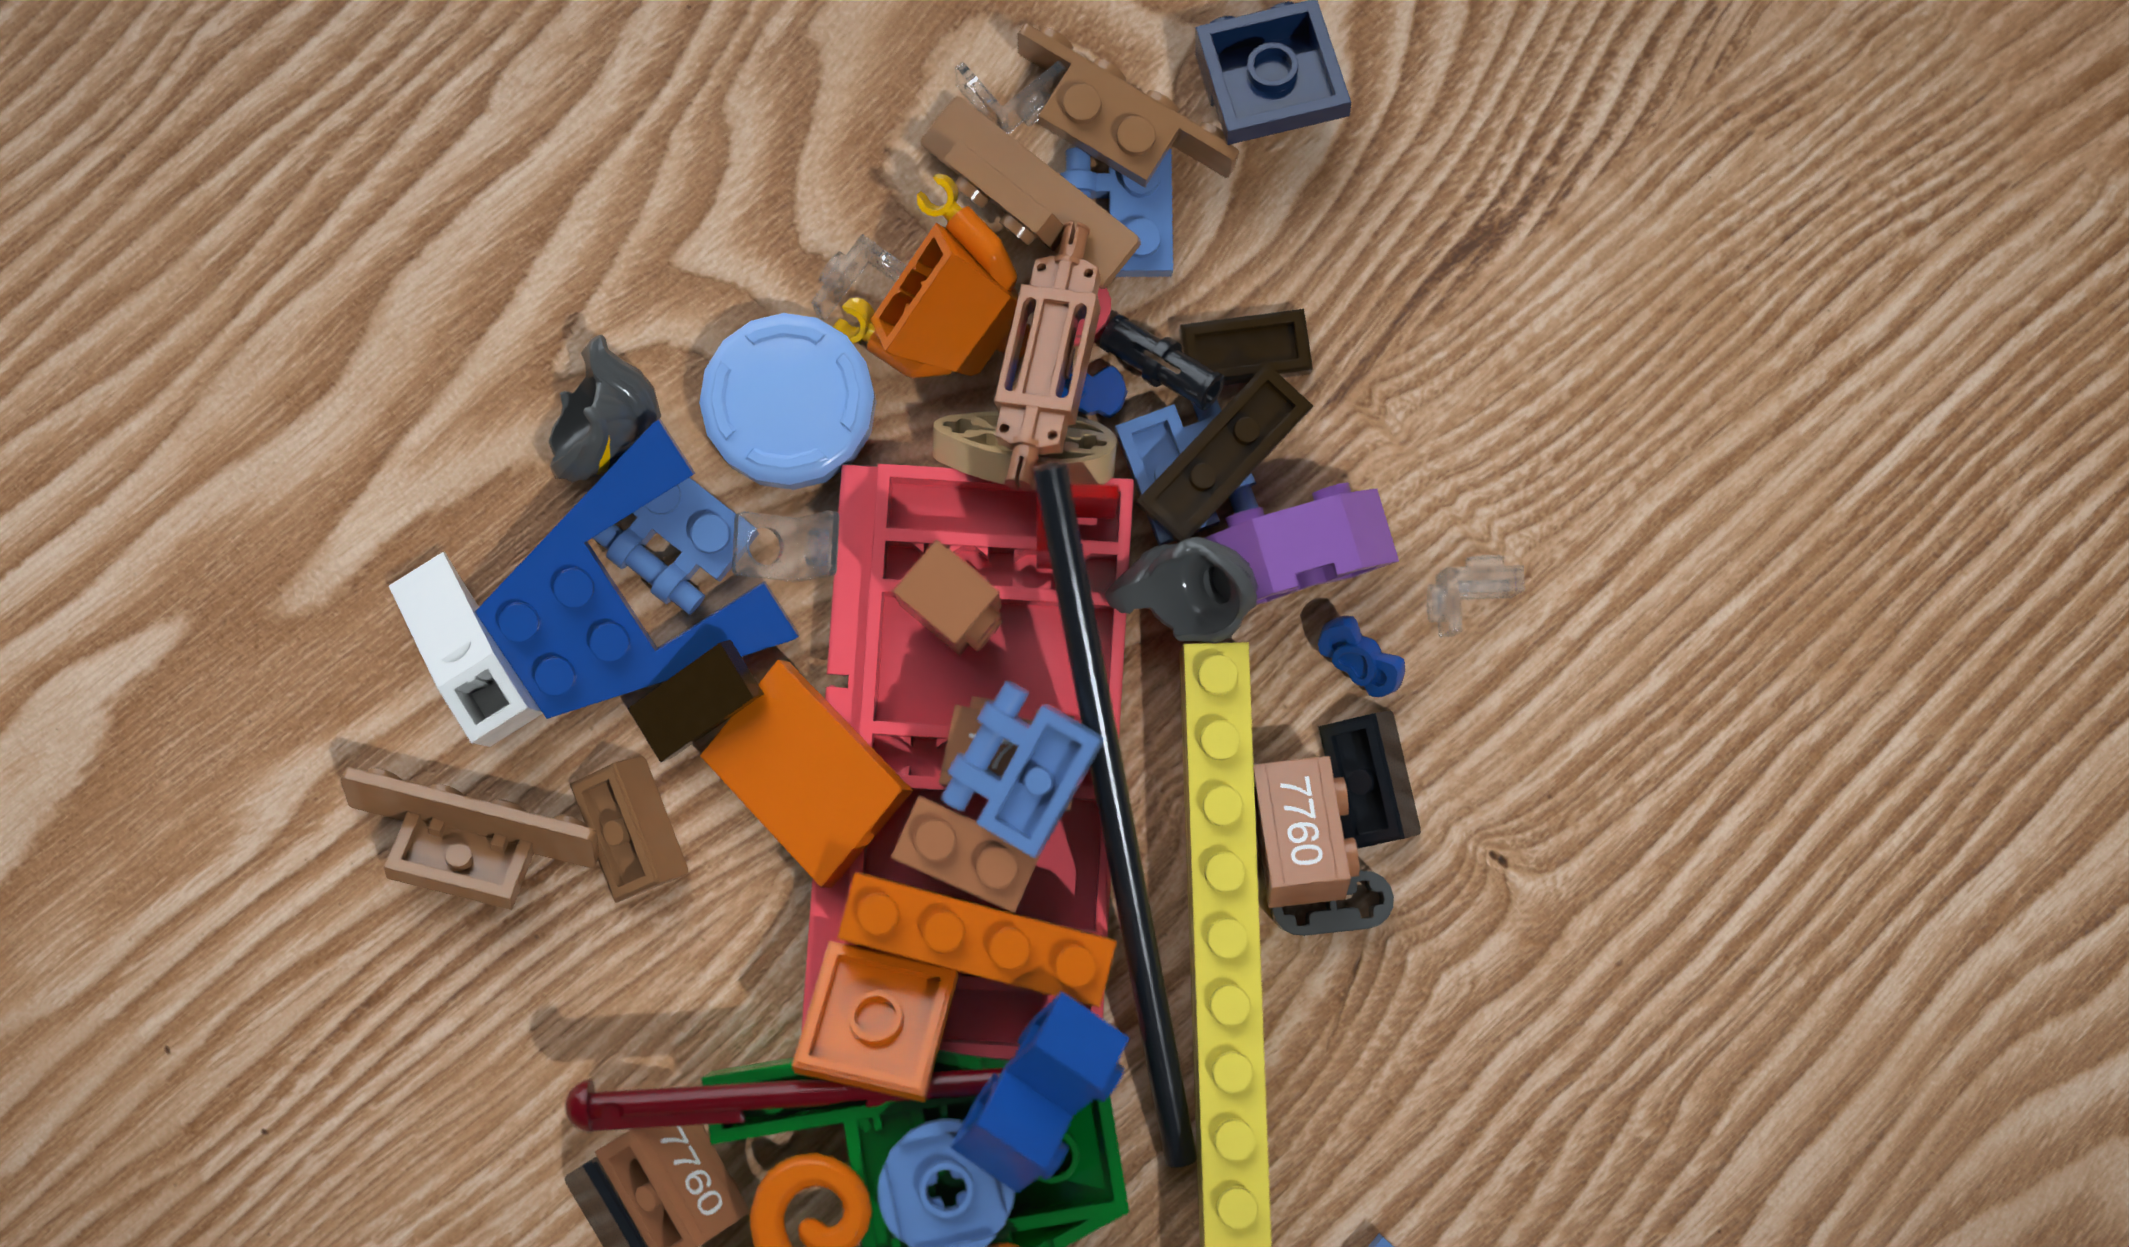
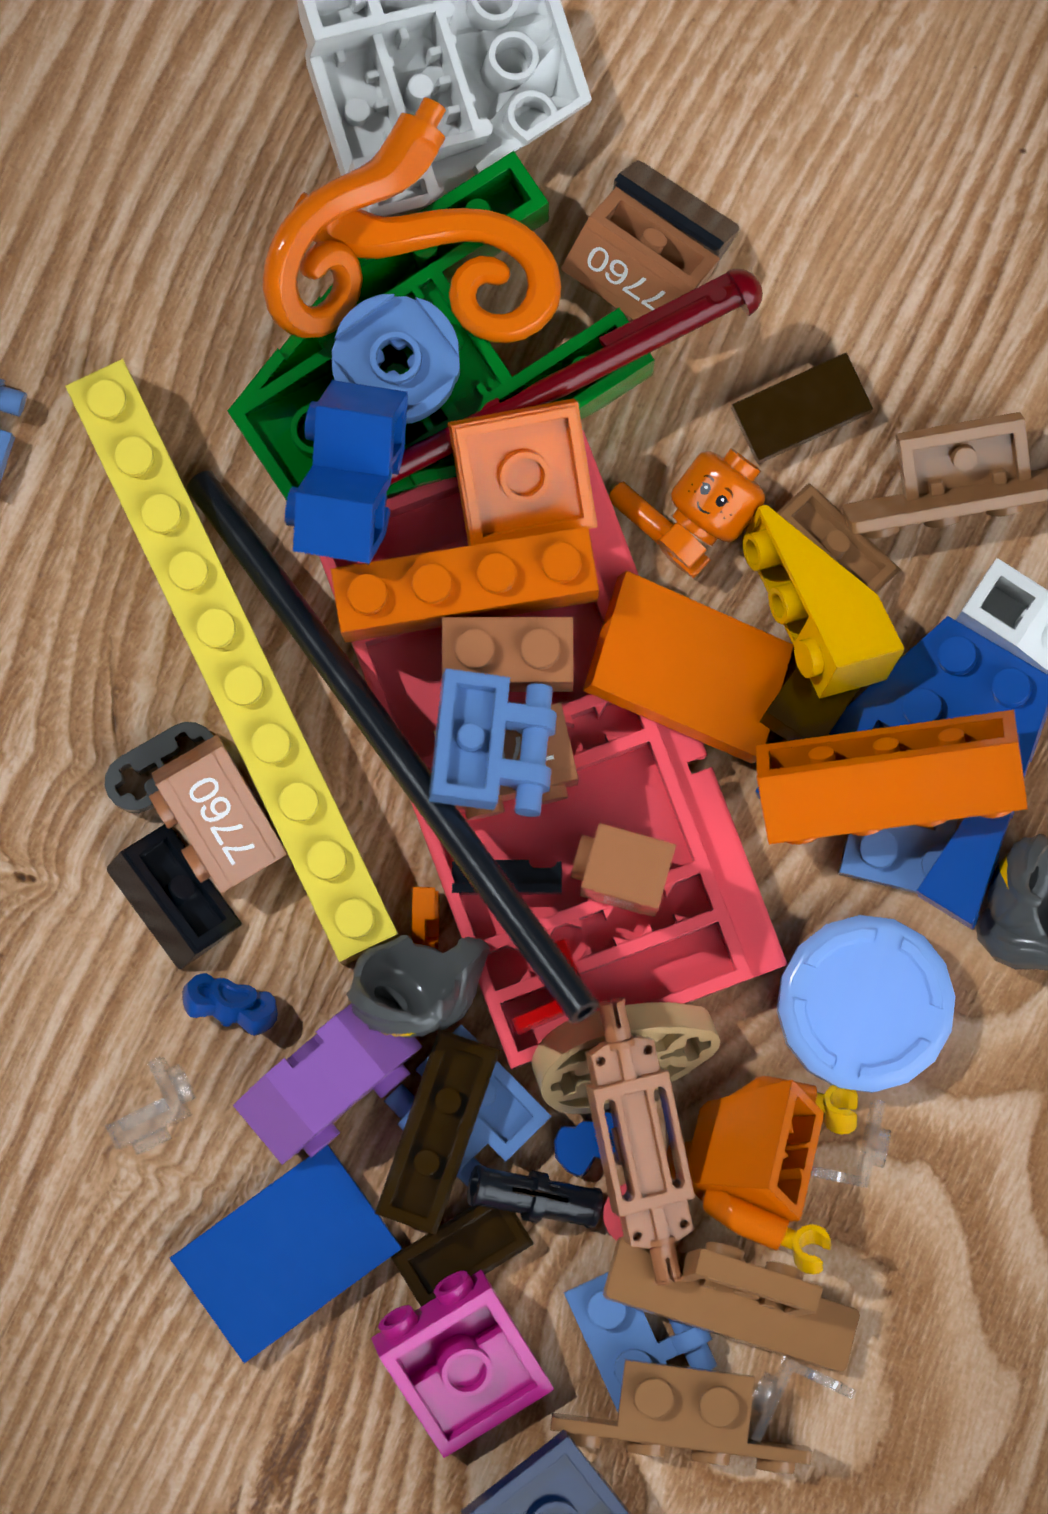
camera: 165 degrees right, 0 degrees up
(588, 975) = (802, 408): none -> dark brown tile
(653, 764) = (829, 614): none -> yellow slope
(664, 581) = (891, 778): none -> orange brick
(704, 924) = (717, 496): none -> orange head
(765, 904) = (672, 539): none -> orange bar
(805, 544) = (786, 876): clear bracket -> none
(1047, 648) = (521, 874): none -> black piece
(1150, 654) = (425, 916): none -> orange tile
(1291, 250) = (460, 1361): none -> dark pink plate
(1405, 414) = (285, 1253): none -> blue tile

